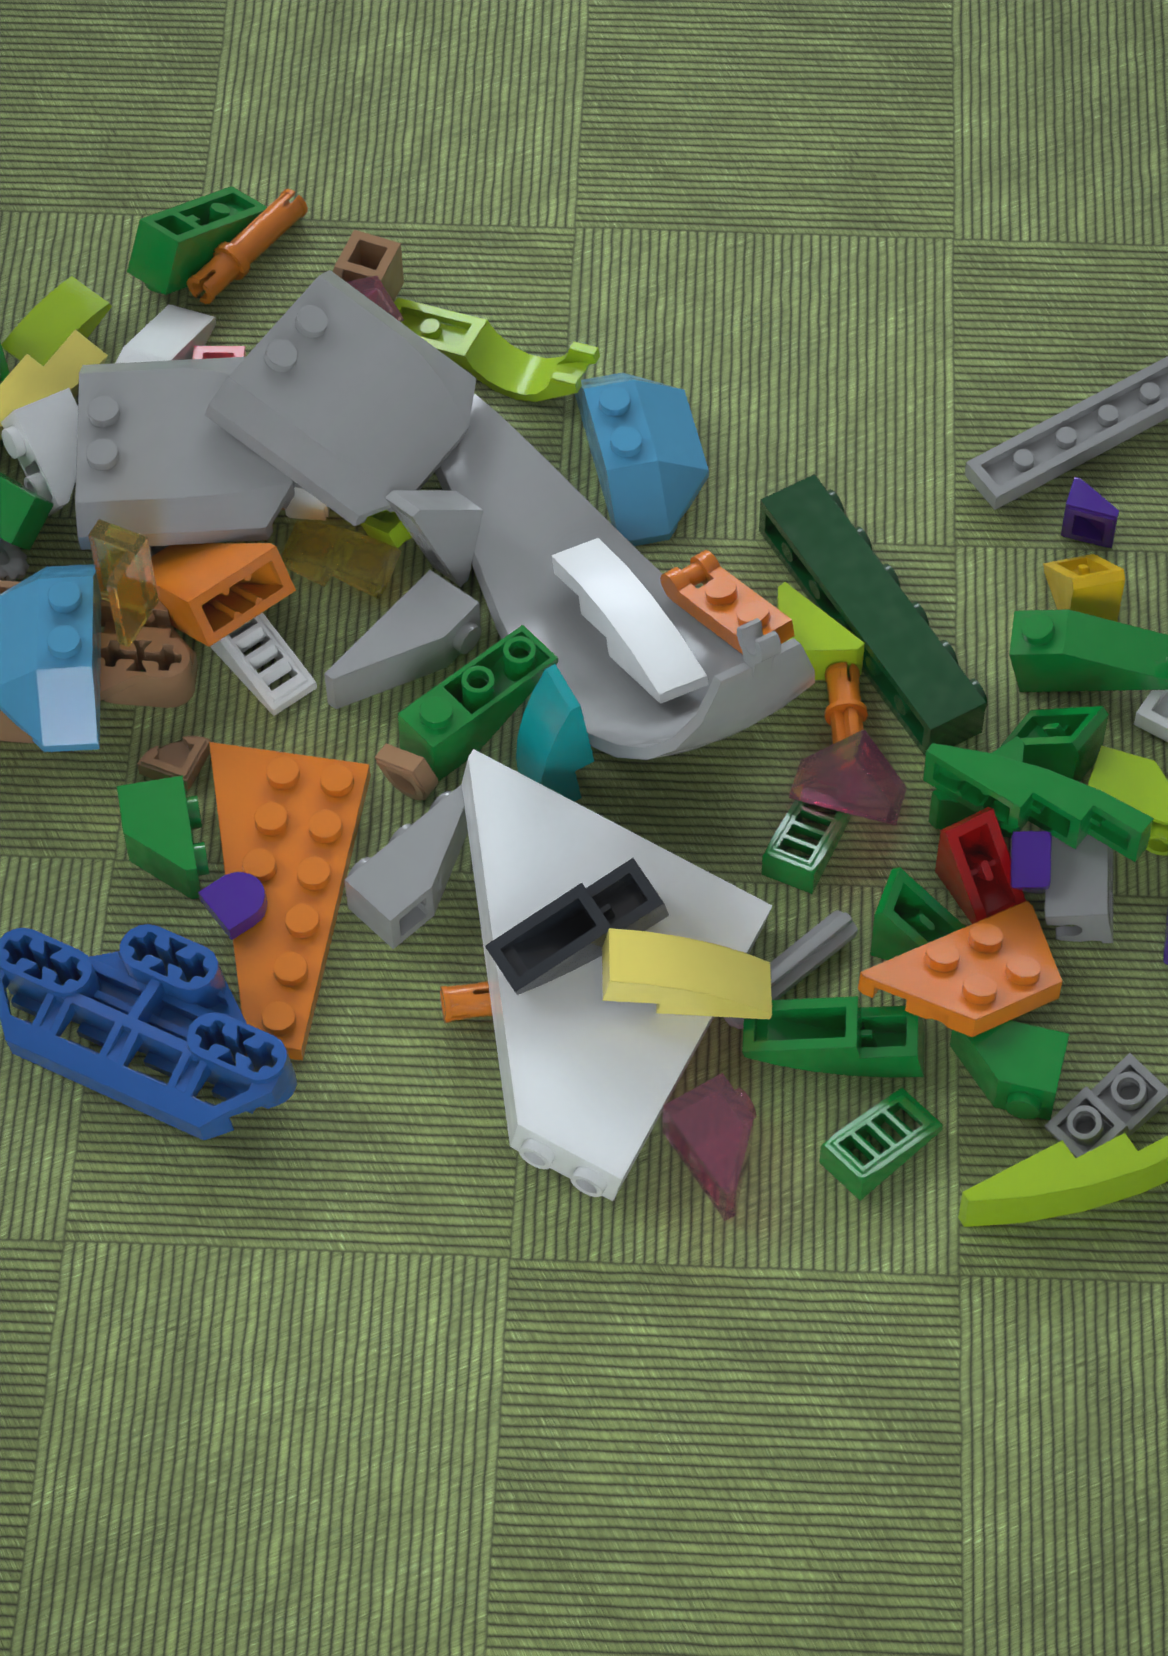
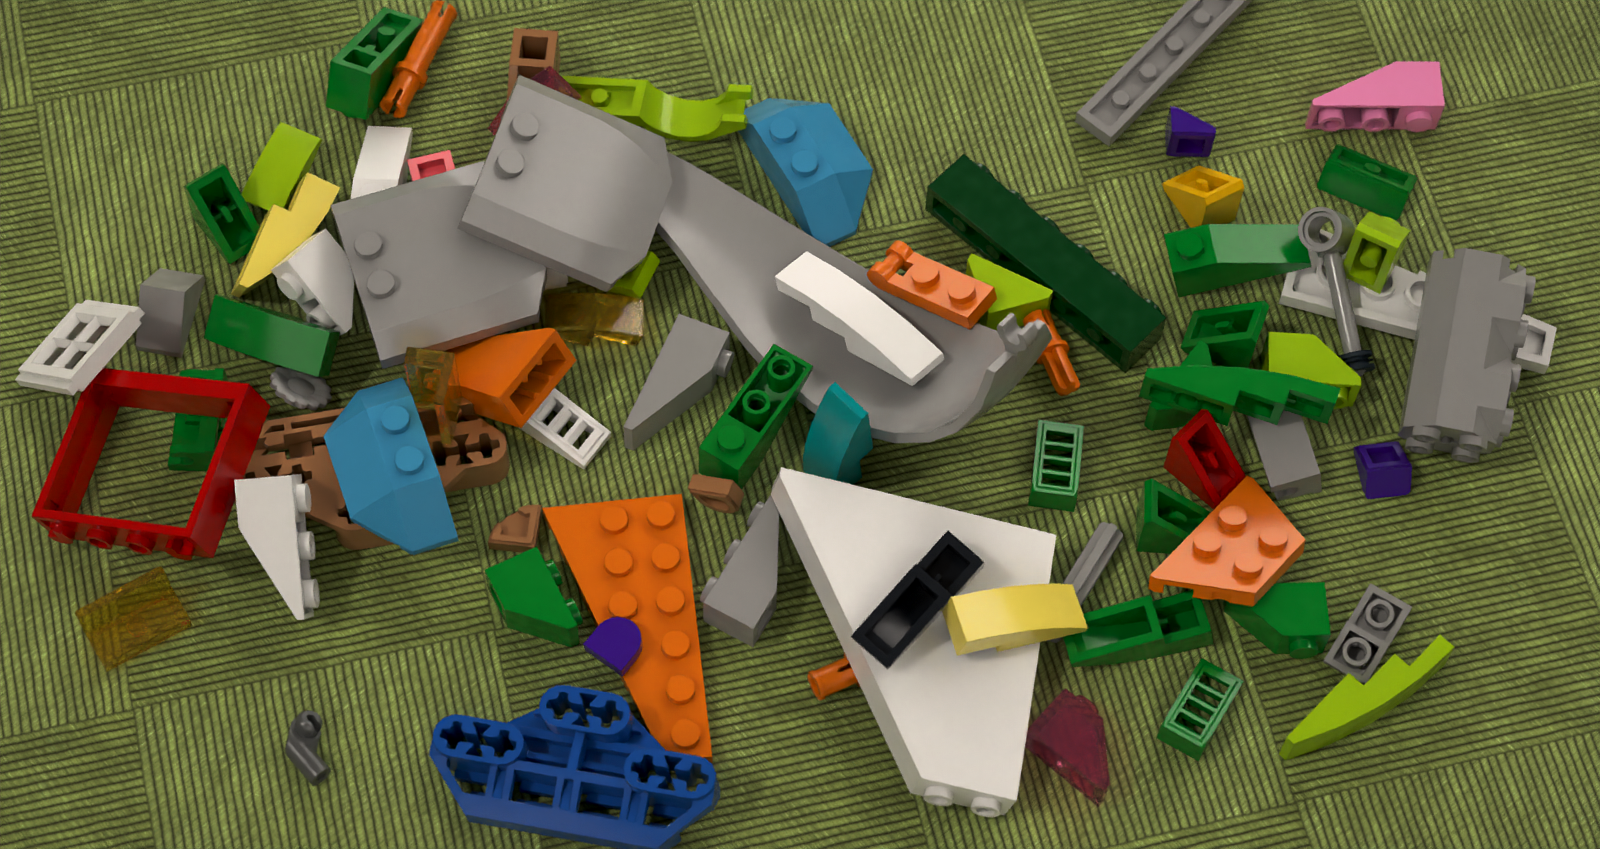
camera: 20 degrees left, 5 degrees up
(442, 526) = (677, 274): light grey slope -> none
(851, 779) = (1076, 408): clear pink slope -> none
(1031, 861) = (1247, 443): dark purple slope -> none

